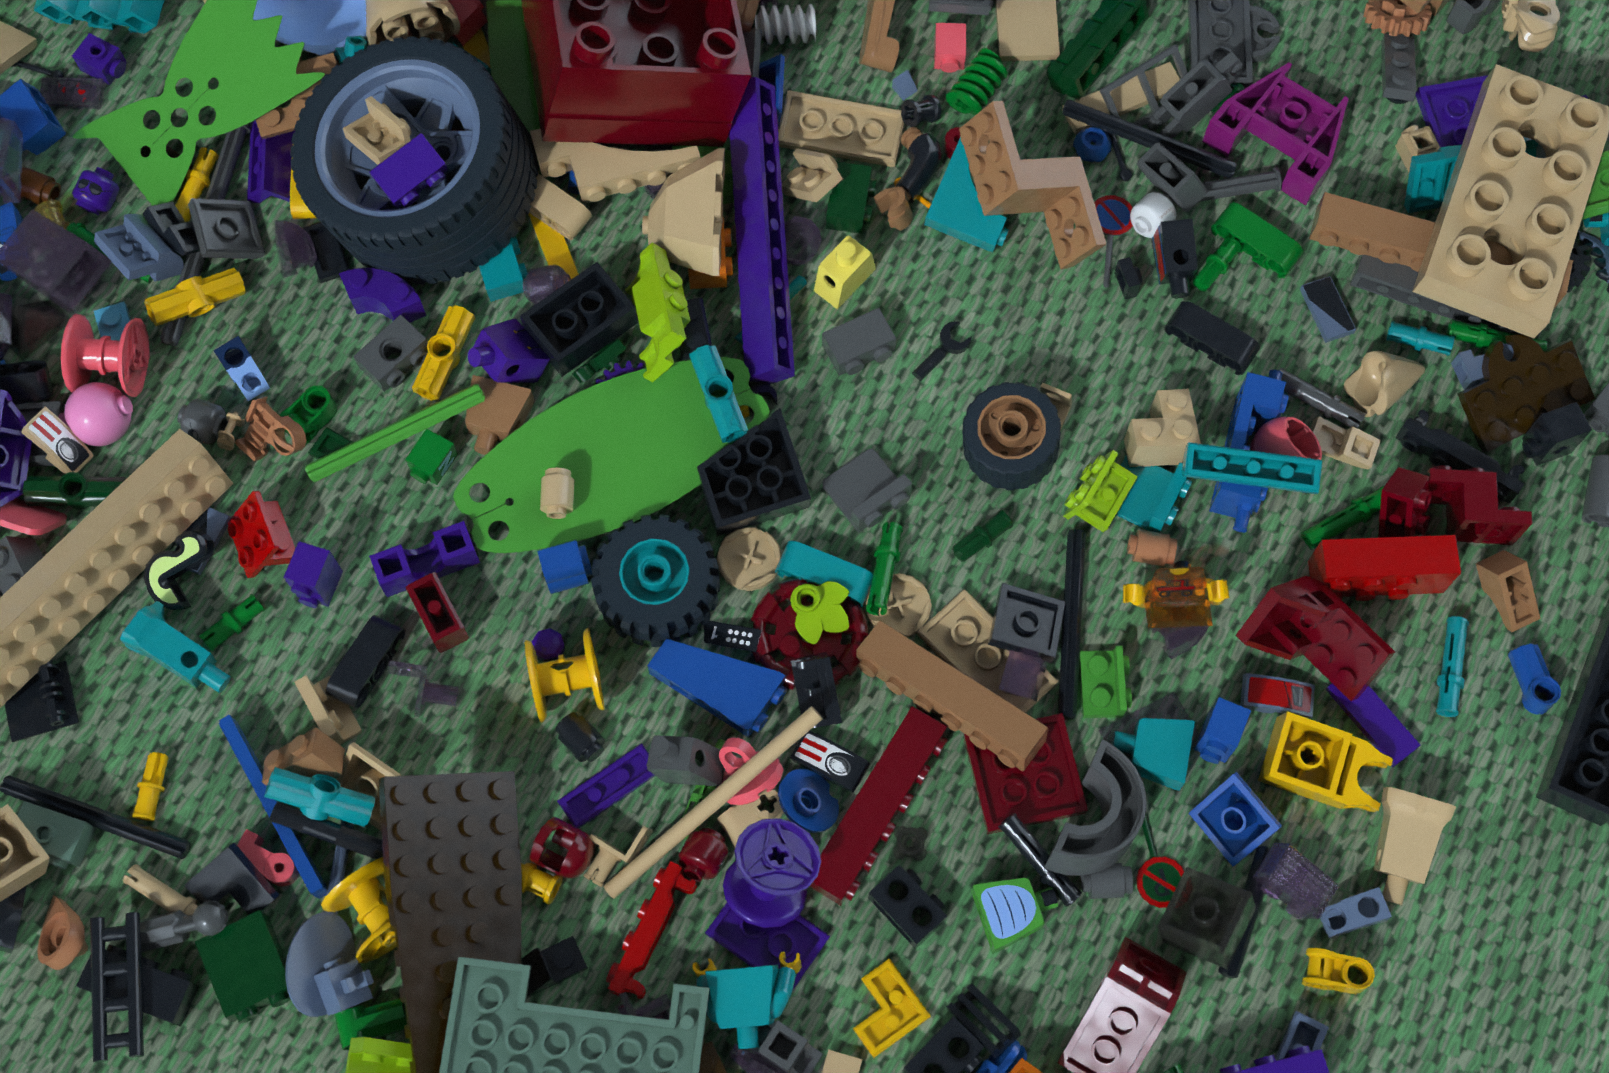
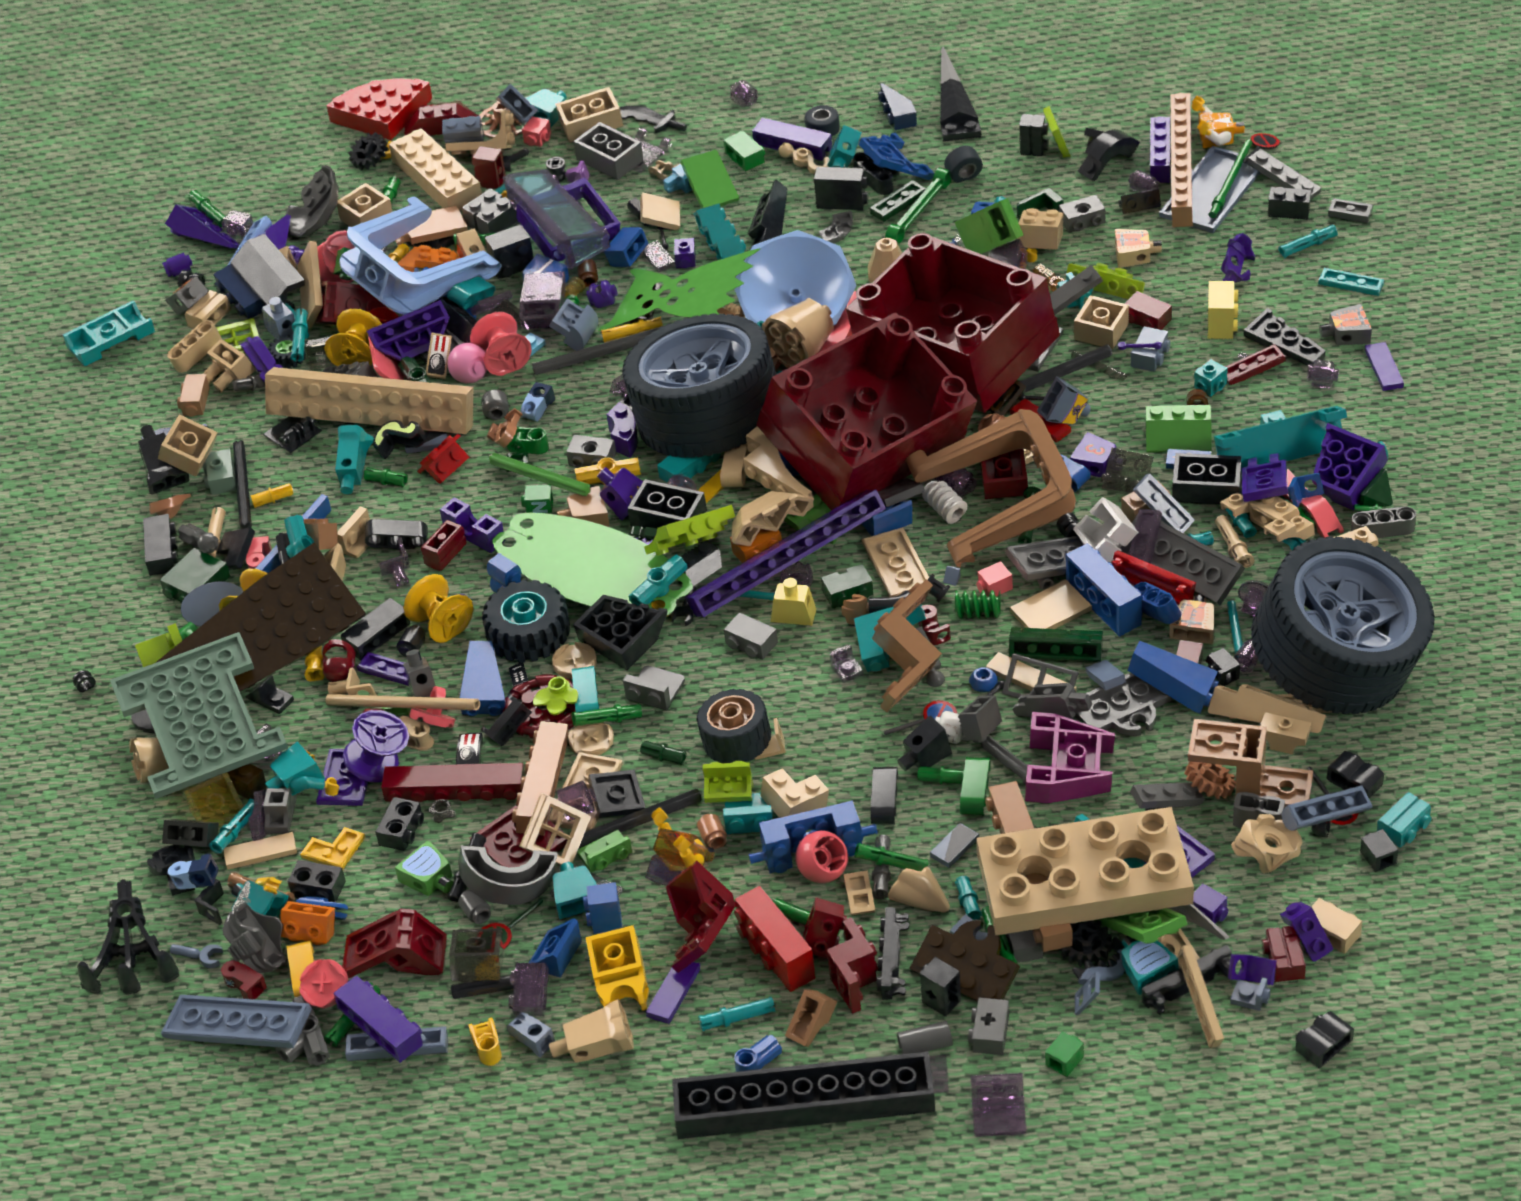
camera: 65 degrees right, 25 degrees down
(133, 1002) = (144, 539): black bar -> none
(172, 228) = (598, 329): black slope -> none
(195, 296) = (564, 360): yellow piece -> none
(225, 438) = (492, 411): tan piece -> none
(226, 228) = (612, 349): dark grey tile -> none
(313, 575) = (429, 484): dark purple brick -> none
(343, 985) = (203, 612): sand blue brick -> none
(378, 132) = (694, 352): tan bracket -> none
(409, 172) = (678, 370): dark purple brick -> none
(523, 753) = (376, 628): none -> black brick
(557, 493) = (544, 548): tan brick -> none
(642, 942) = (315, 722): red piece -> none
(807, 800) = (436, 741): blue dish -> none
(814, 177) = (844, 559): tan bracket -> none
(948, 345) = (783, 679): black piece -> none
(964, 1000) = (347, 885): black tile -> none
(974, 268) = (845, 664): none -> bracket
(1071, 762) = (536, 823): none -> tan piece
(1128, 278) = (894, 736): black plate -> none
(1148, 138) = (1005, 700): black axle -> none
(1177, 23) = (1105, 674): none -> sand blue tile
(1252, 468) = (778, 825): teal brick -> none
(1277, 694) = (654, 936): slope -> none
(1323, 388) = (882, 856): none -> green pin

